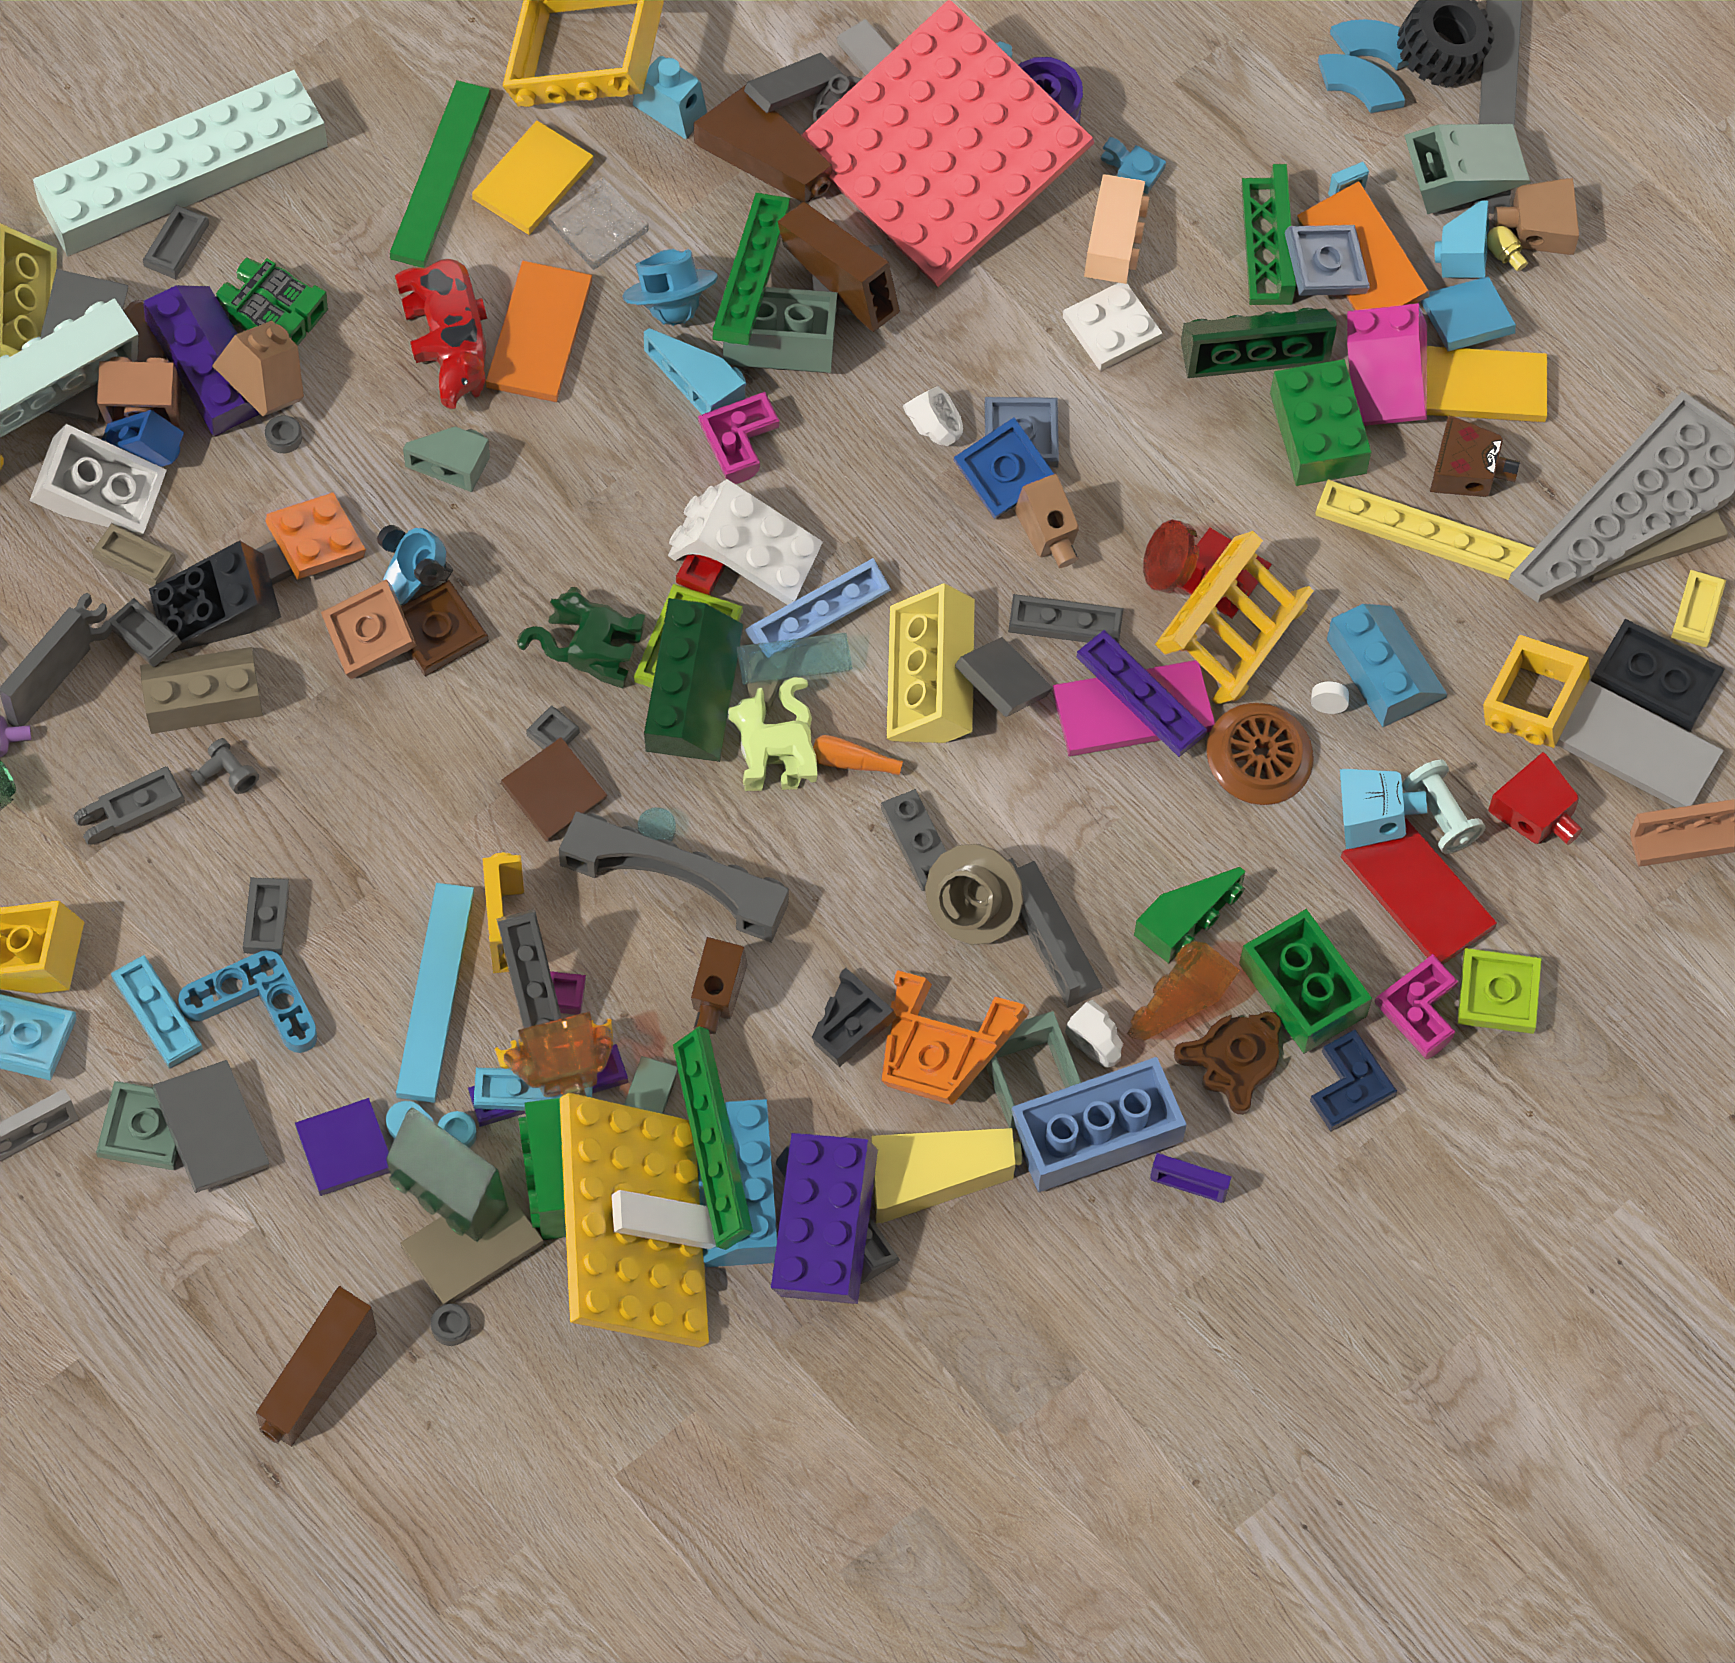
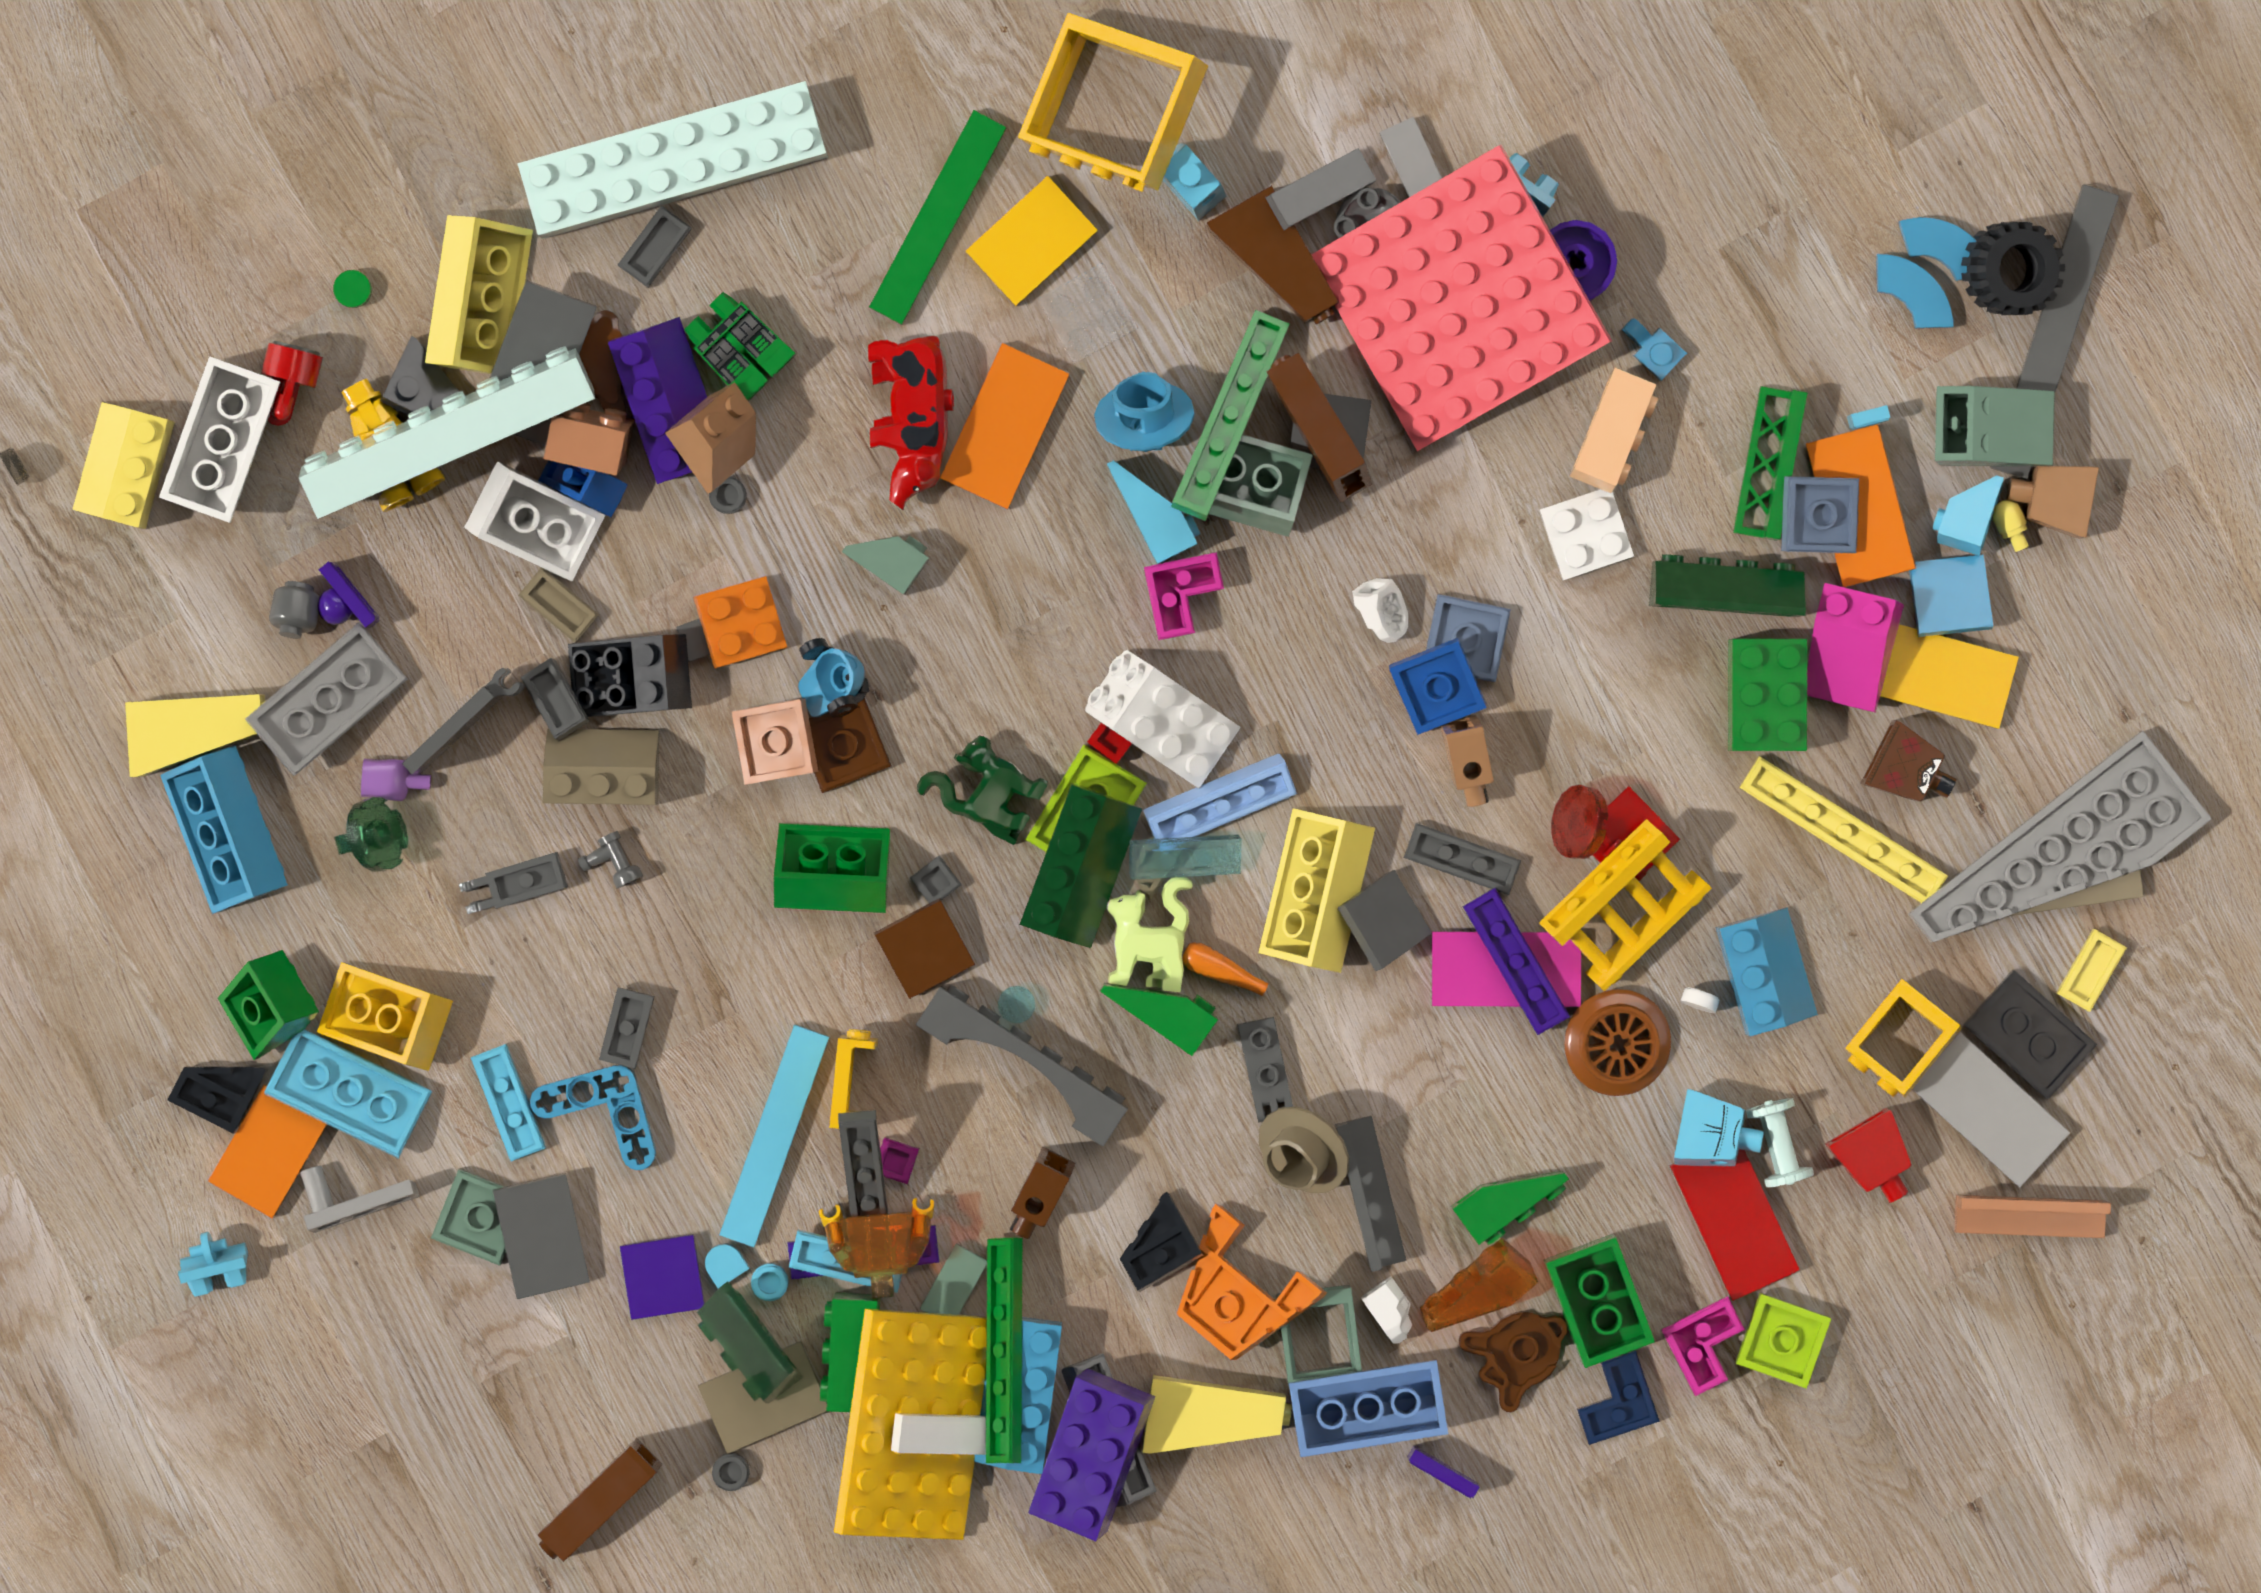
camera: 10 degrees right, 25 degrees up
(447, 735) = (831, 868): none -> green slope
(803, 792) = (1170, 1014): none -> green slope

